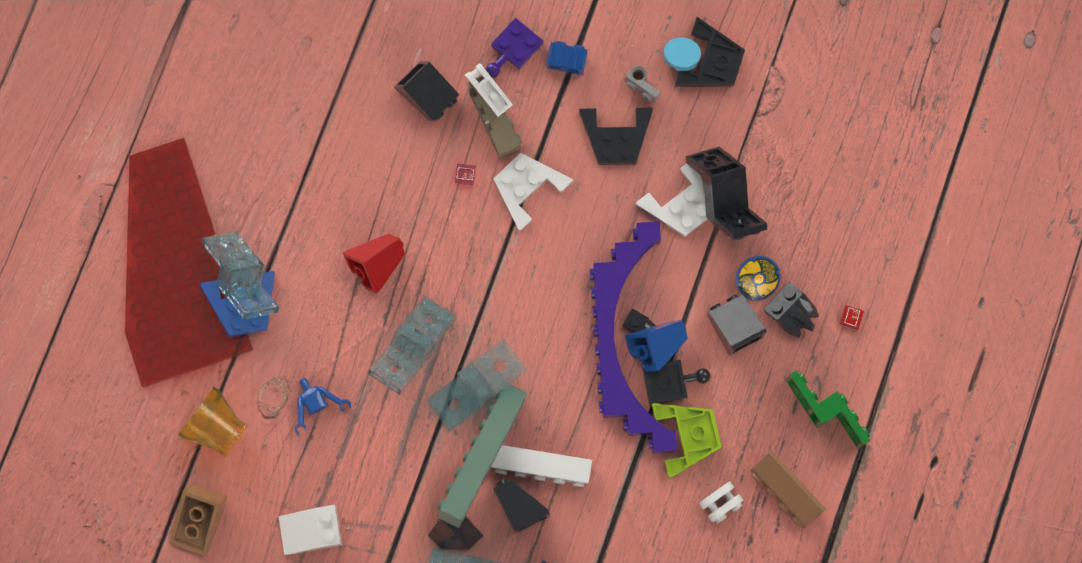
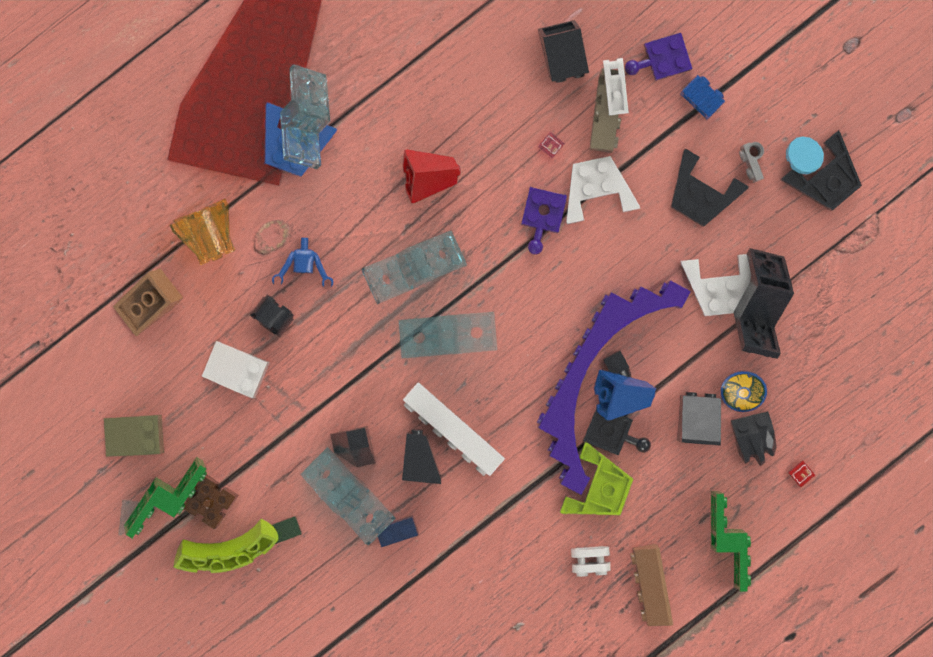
camera: 30 degrees right, 10 degrees up
(315, 462) = (272, 316): none -> black brick
(482, 455) = (415, 399): sand green brick -> none
(489, 244) = (549, 222): none -> dark purple plate

